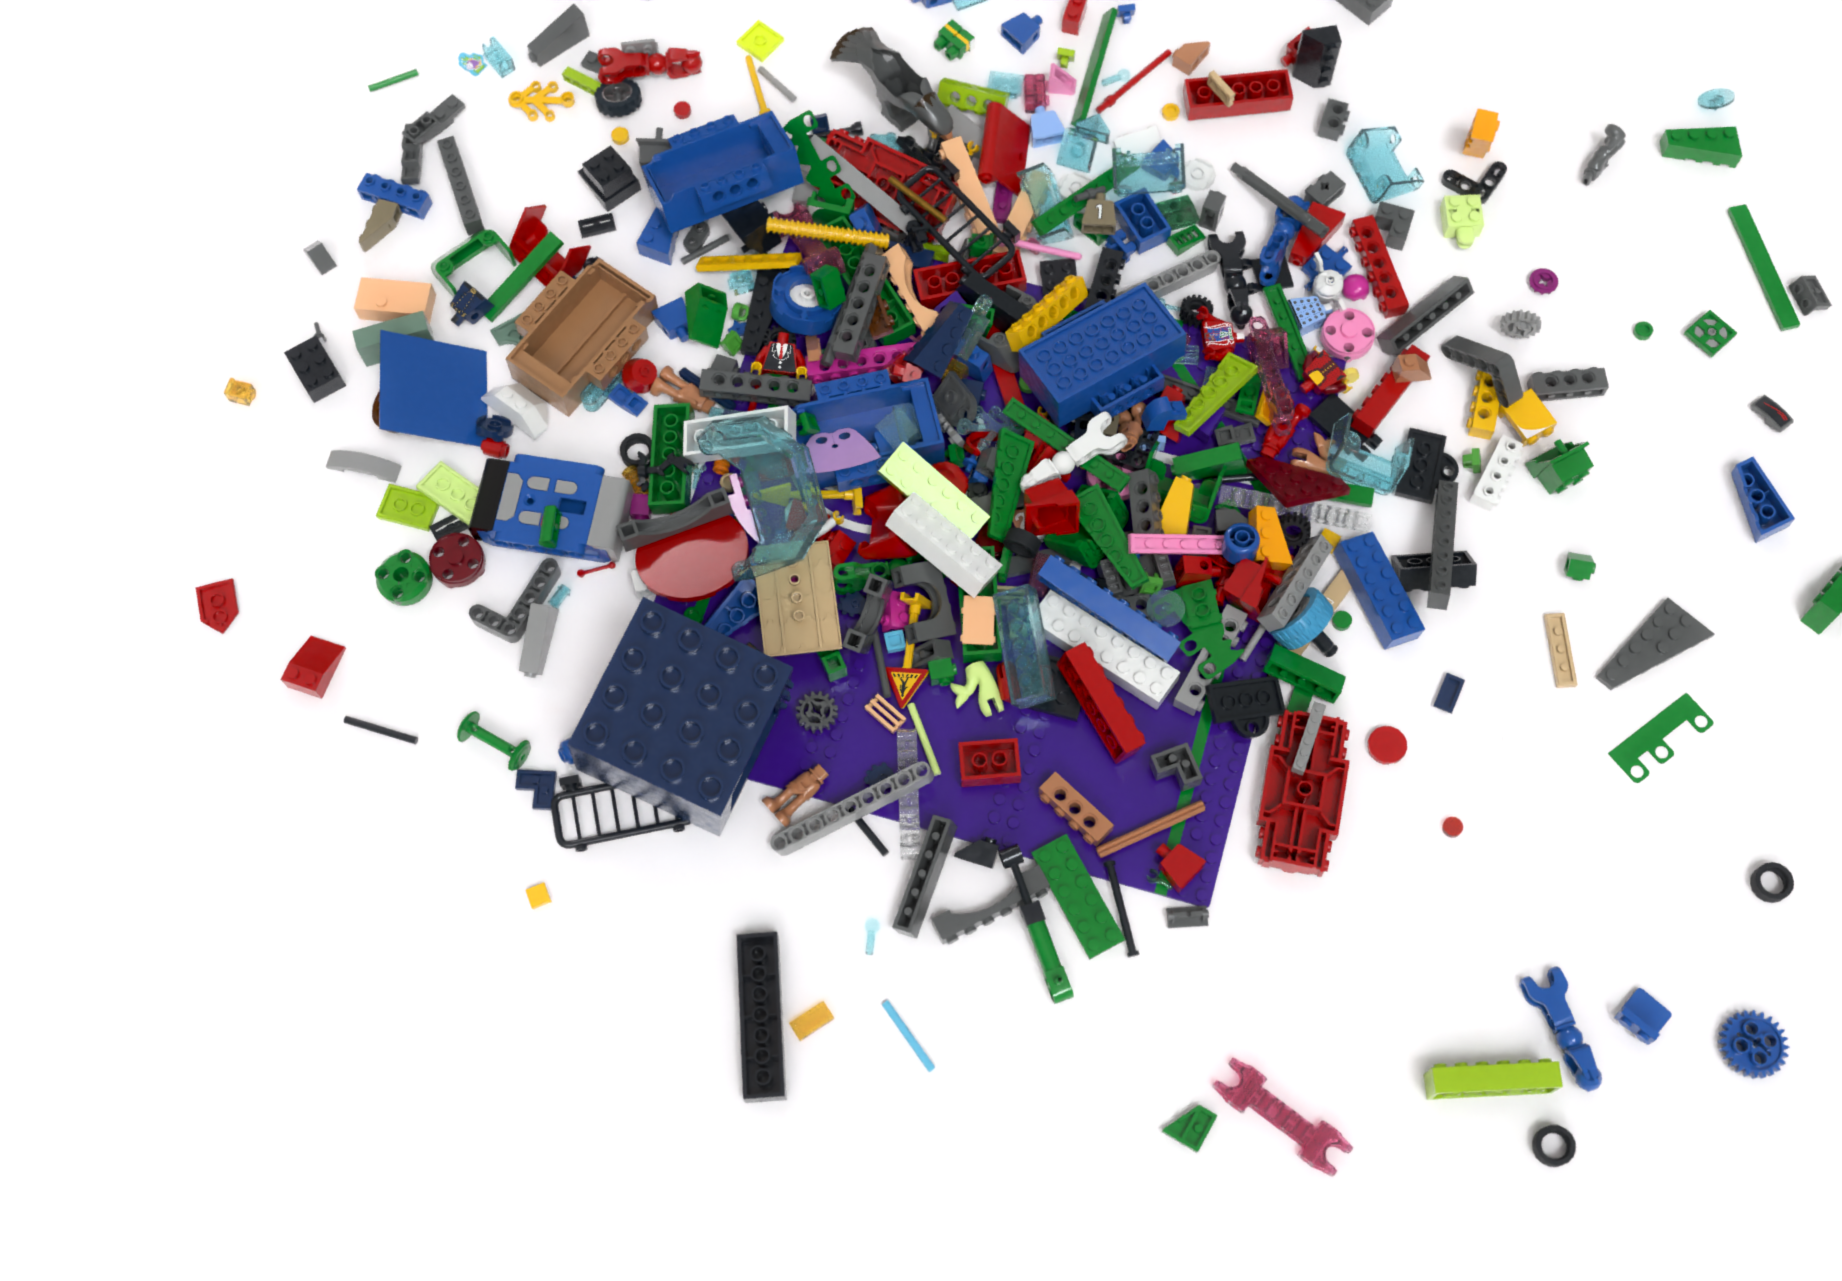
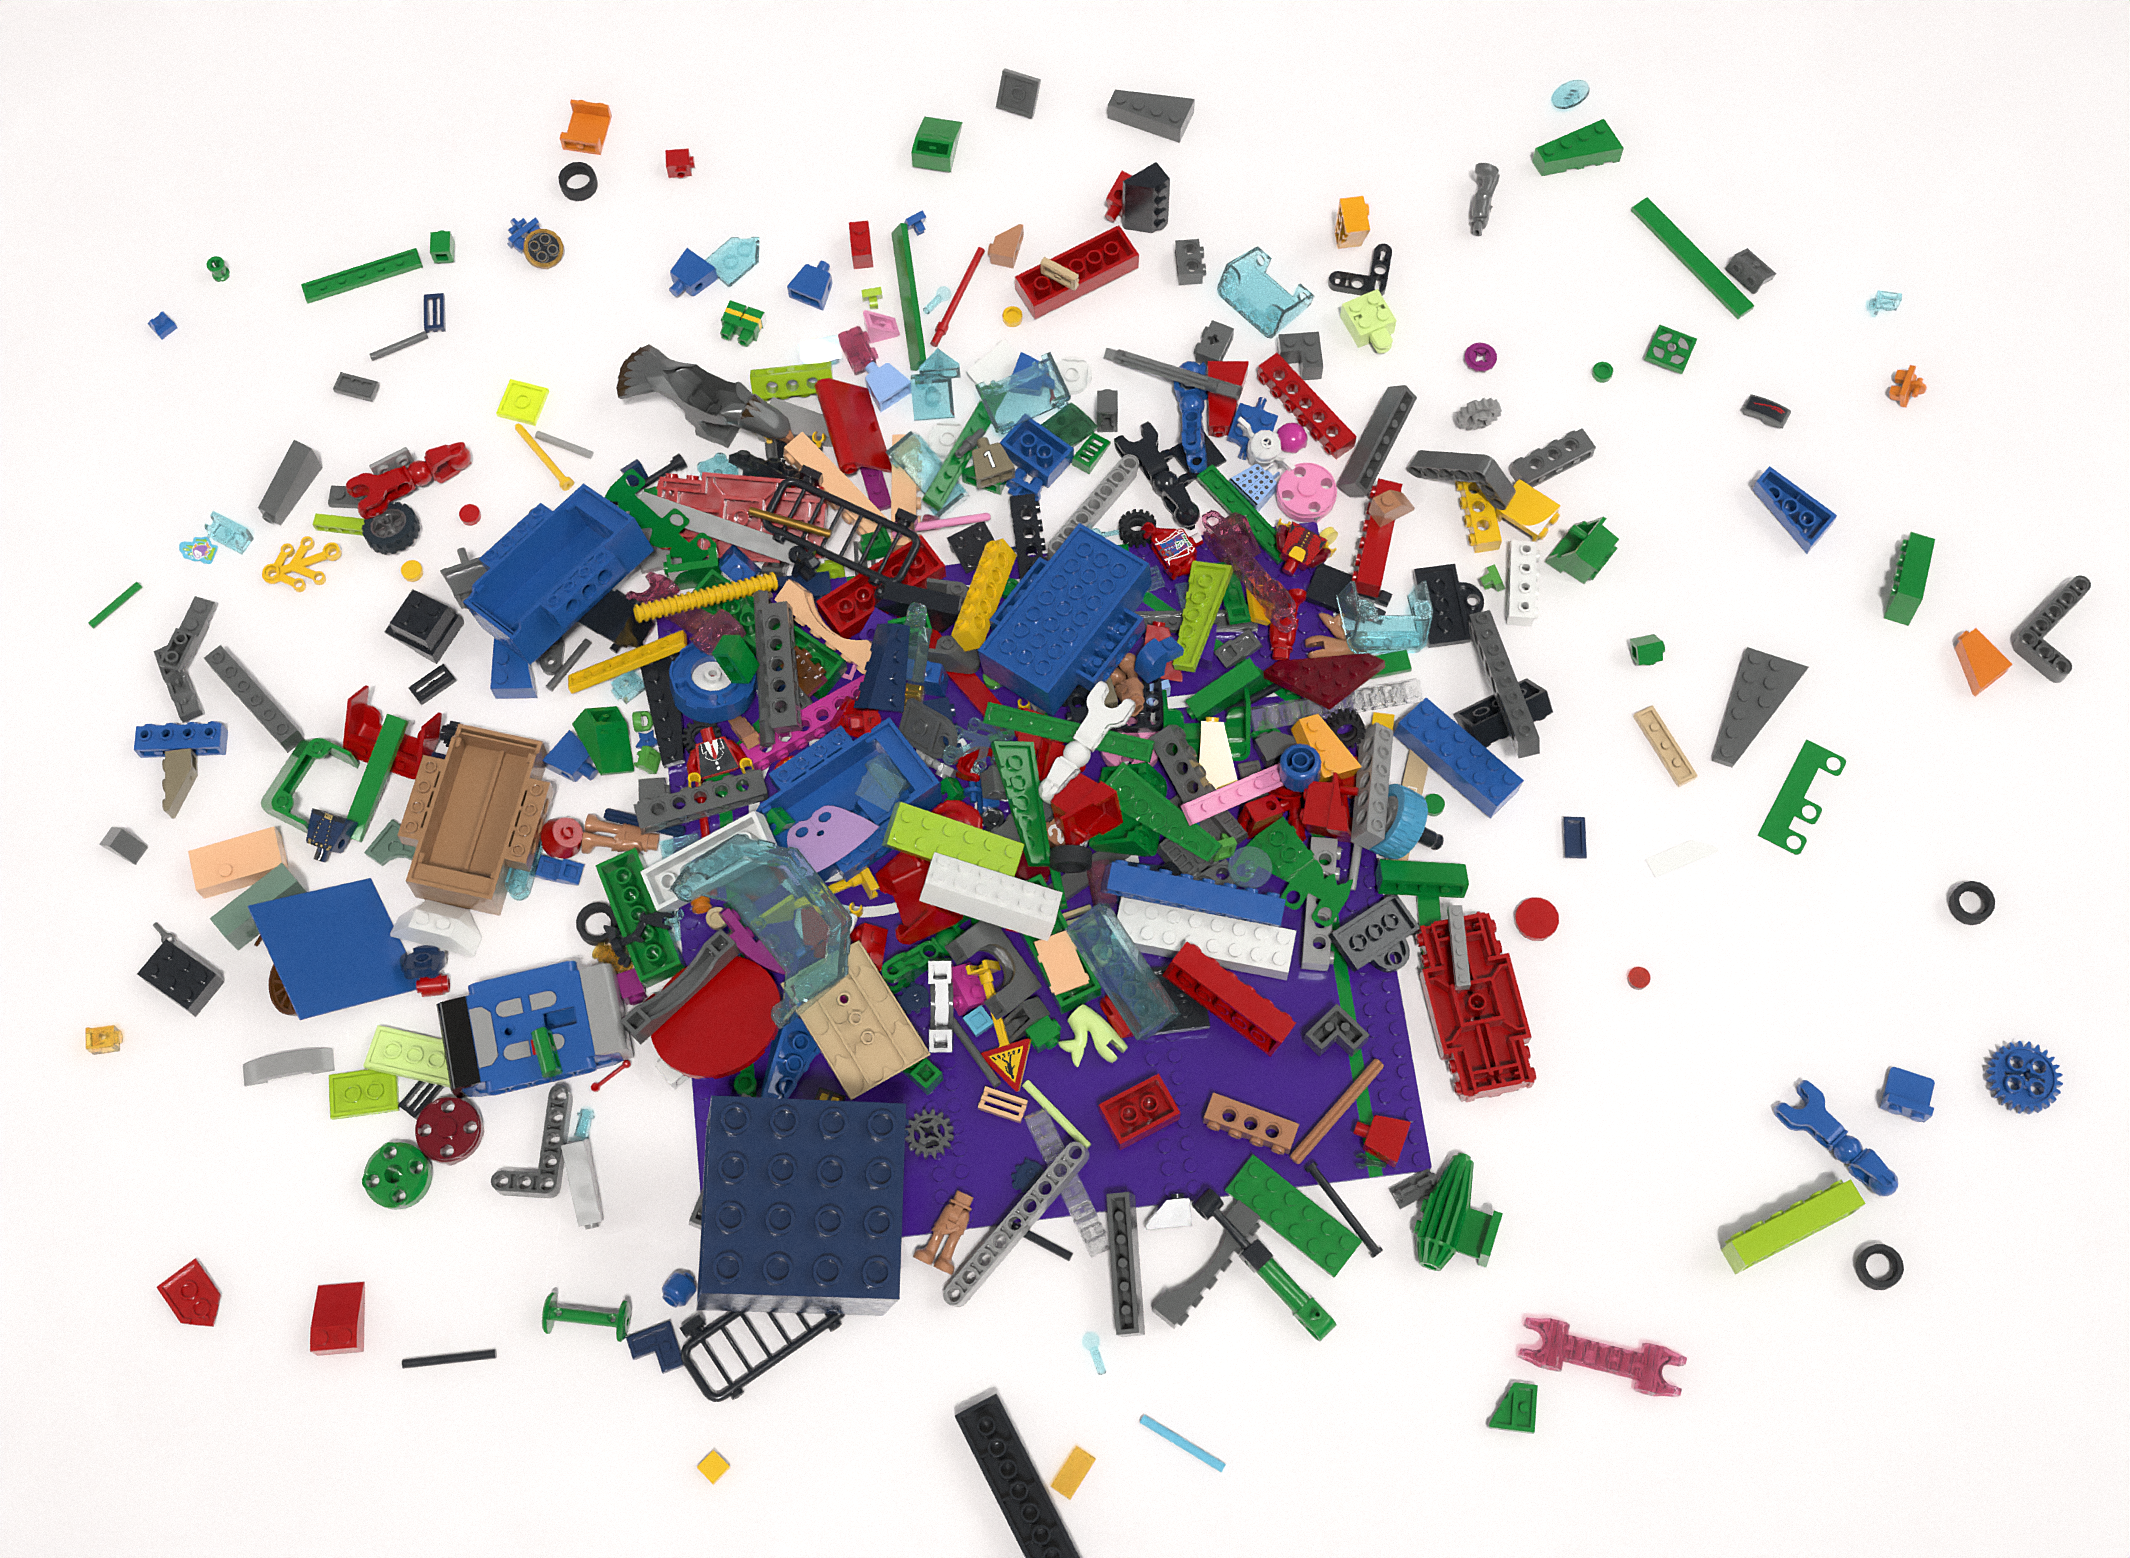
camera: 25 degrees left, 0 degrees up
(1203, 955) = (1450, 1222): none -> green piece

